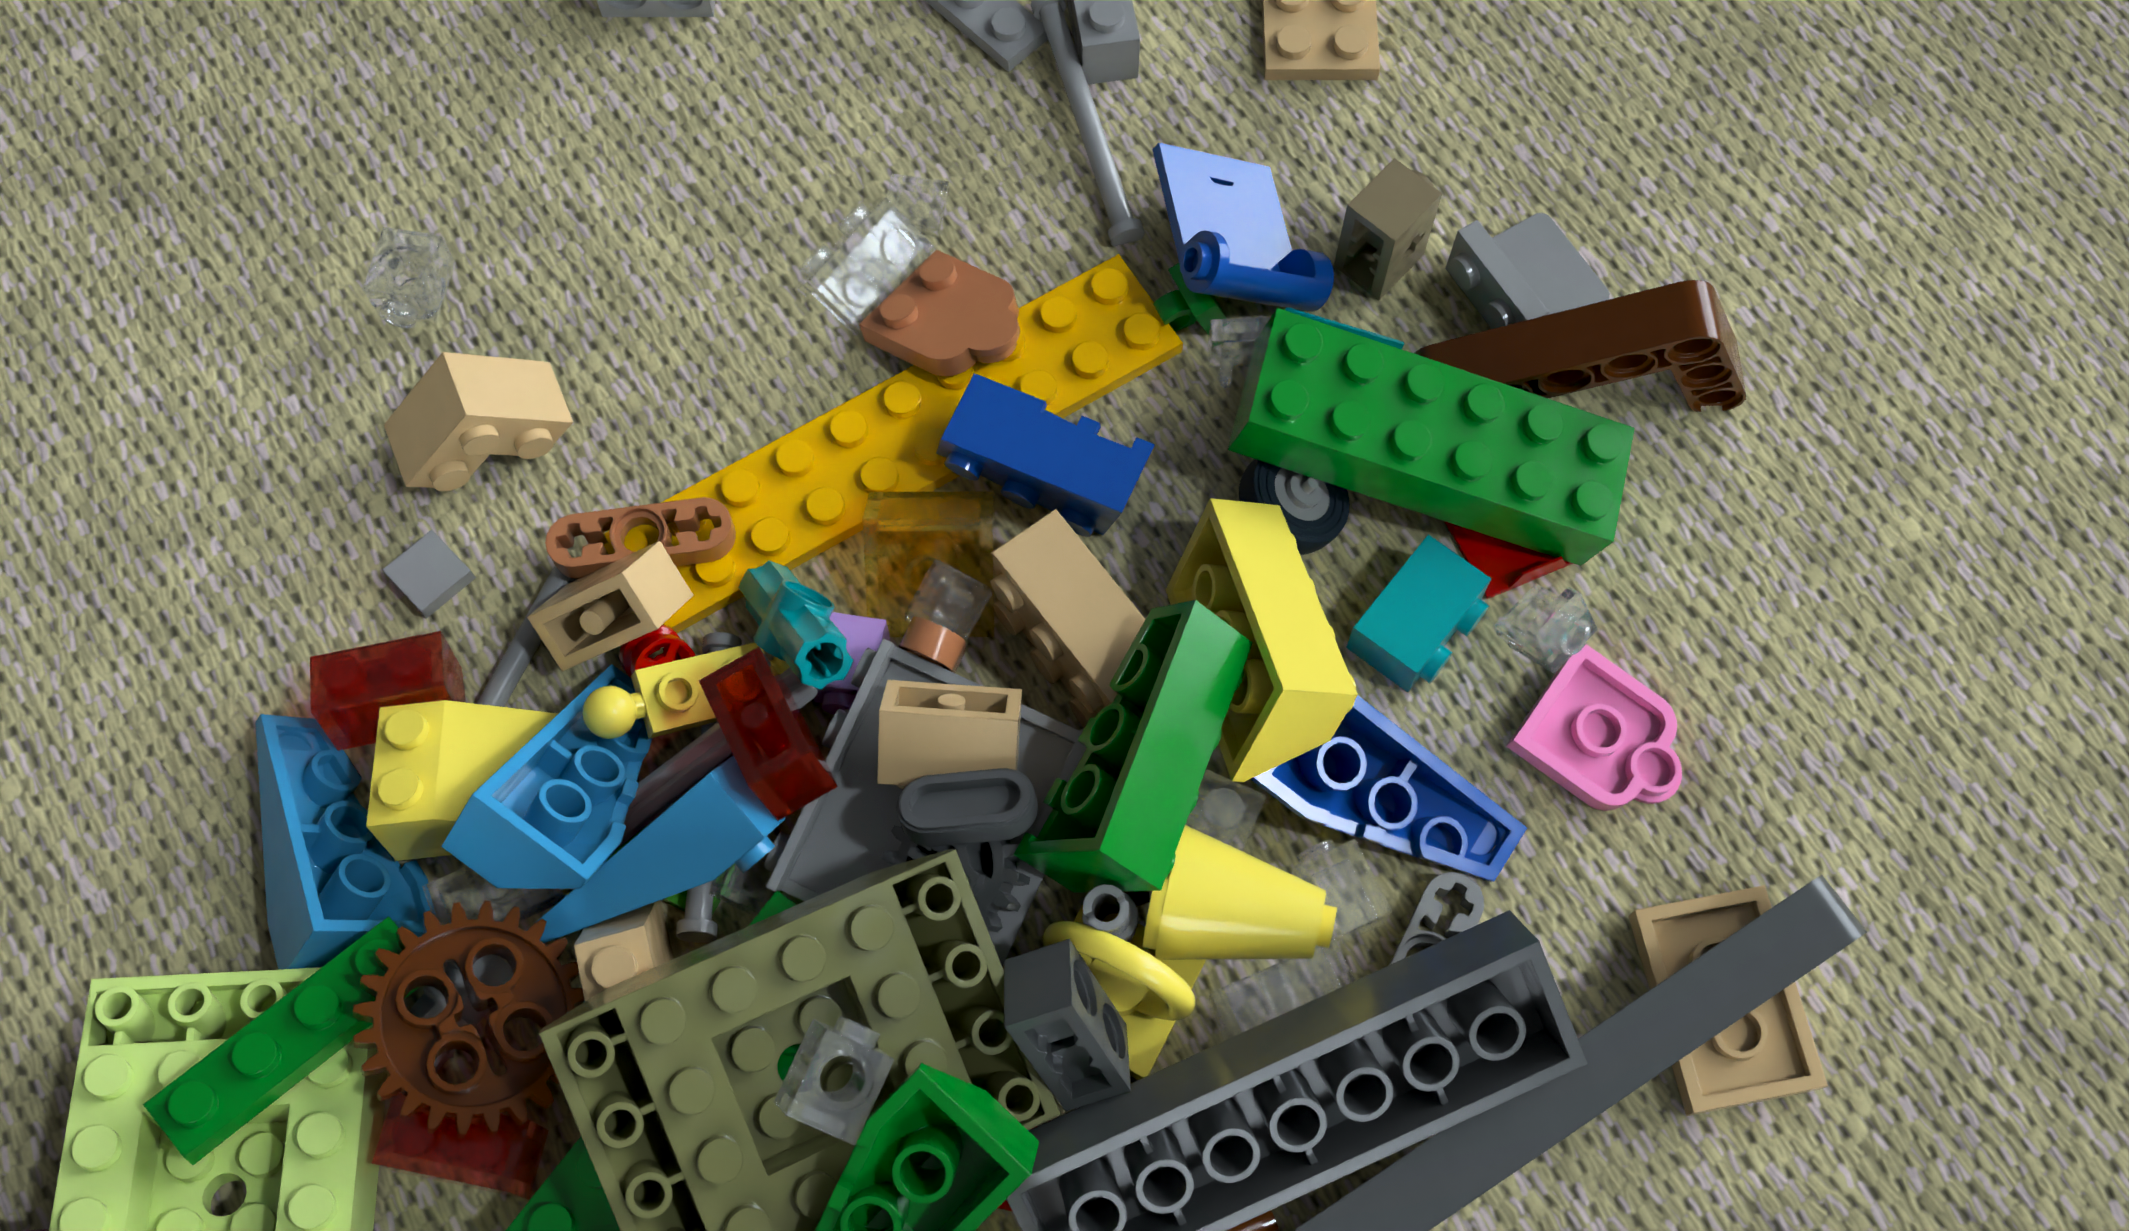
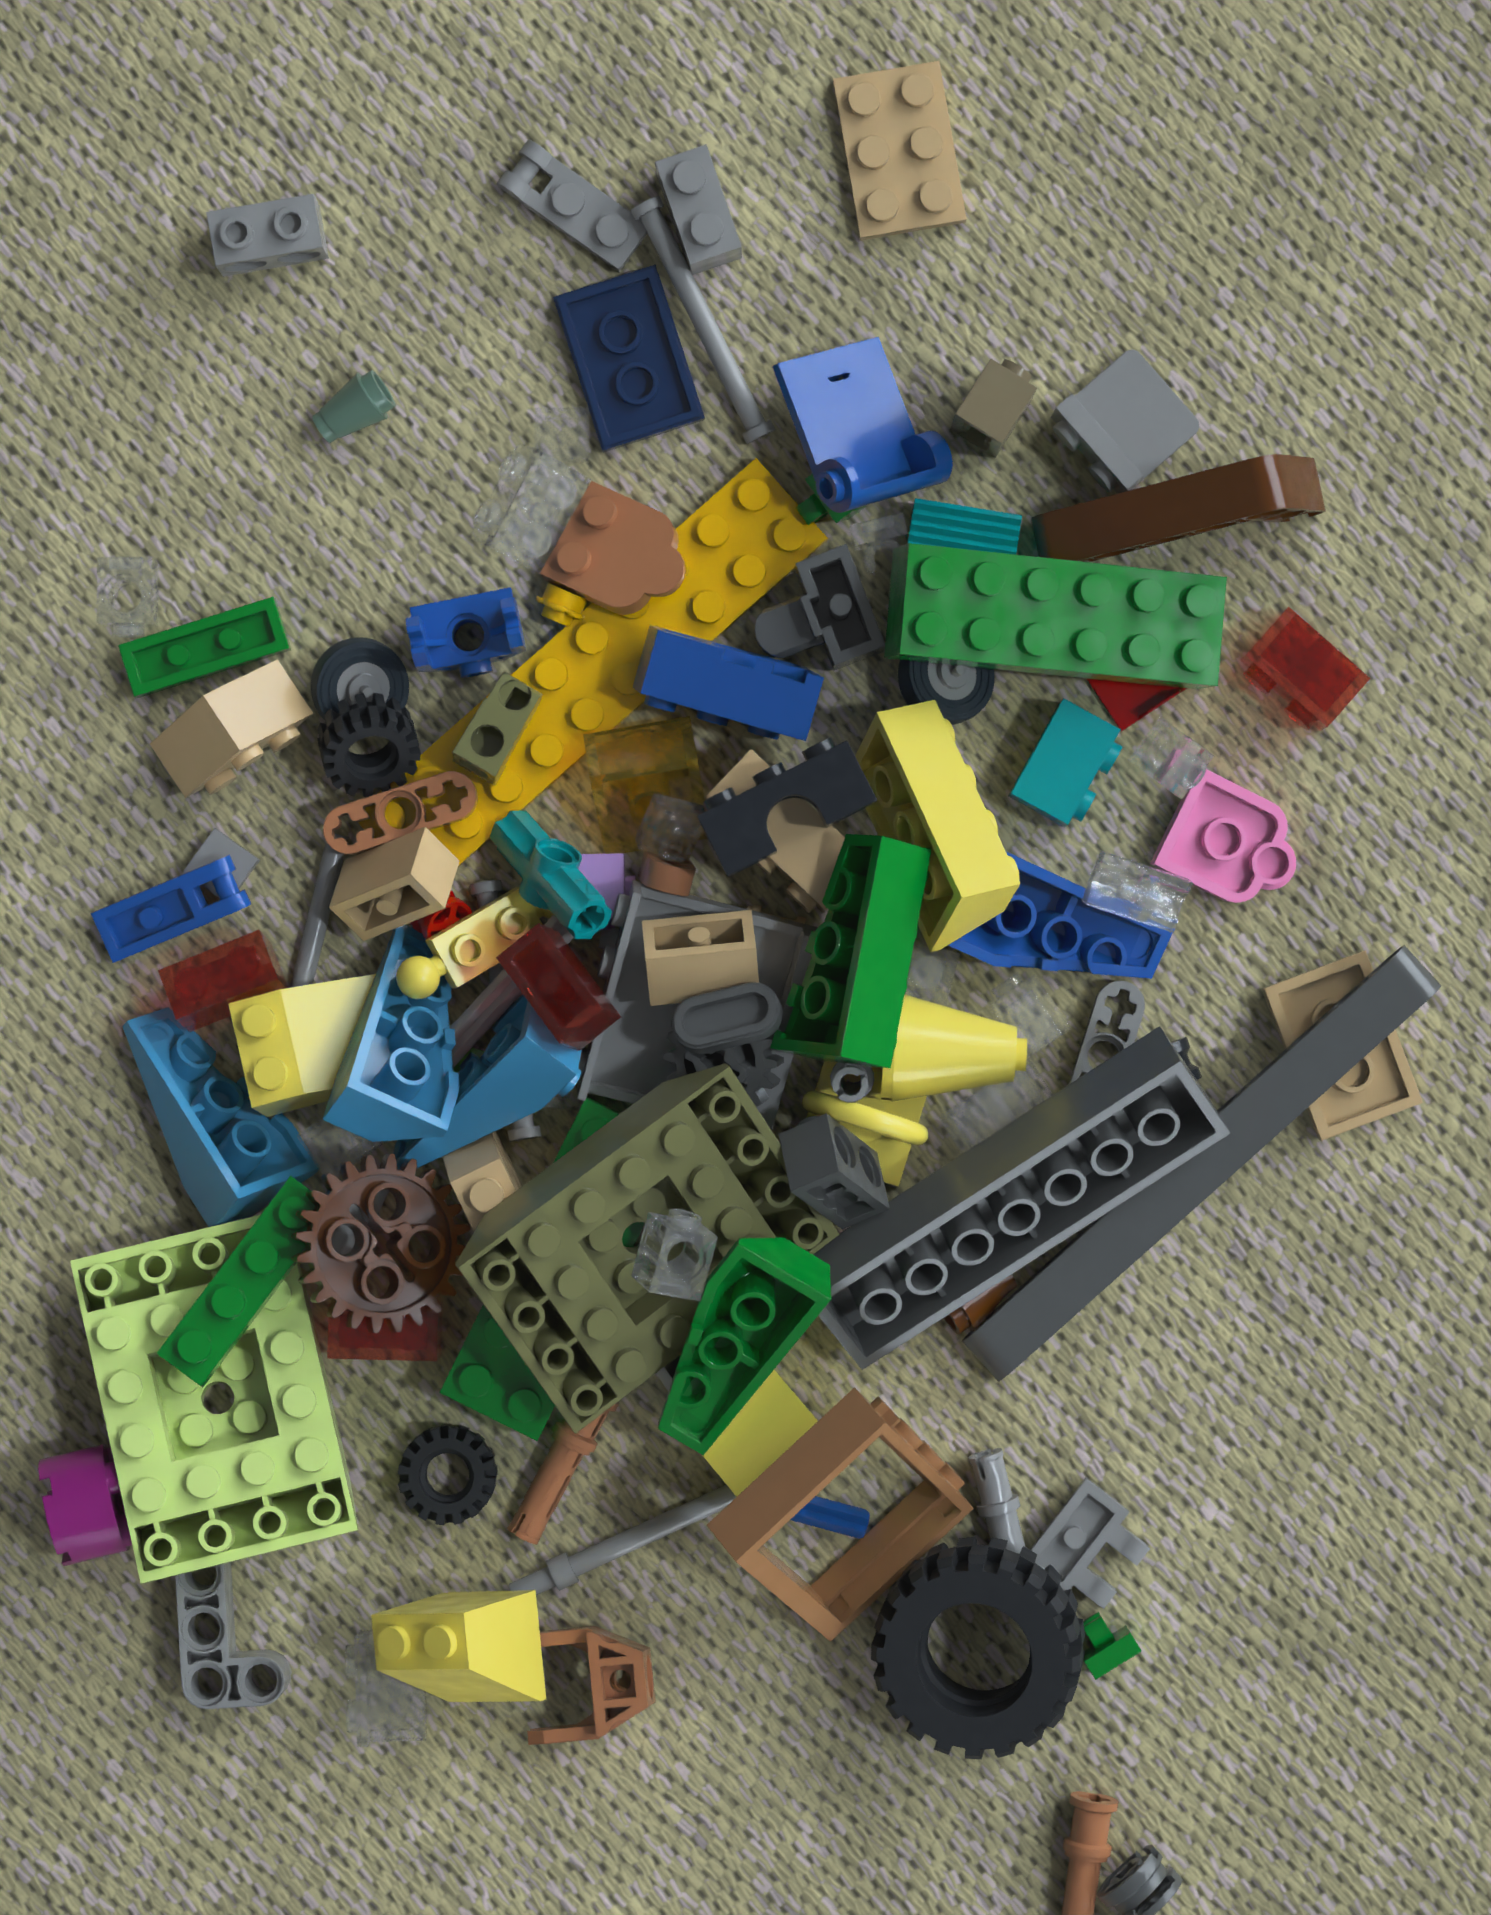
camera: 10 degrees left, 20 degrees up
(352, 603) = (169, 909): none -> blue plate
(514, 333) = (204, 647): none -> green plate
(623, 423) = (363, 721): none -> black tyre
(633, 406) = (358, 668): none -> black wheel
(701, 143) = (354, 407): none -> sand green cone
(733, 357) = (435, 625): none -> blue piece
(769, 463) = (497, 728): none -> olive leg
(876, 362) = (561, 605): none -> yellow plate
(1002, 147) = (629, 358): none -> dark blue tile
(1134, 544) = (827, 780): none -> black arch
(1172, 407) = (827, 613): none -> dark grey brick
(1490, 764) = (1136, 891): none -> clear hips
(1709, 558) = (1303, 671): none -> clear red brick

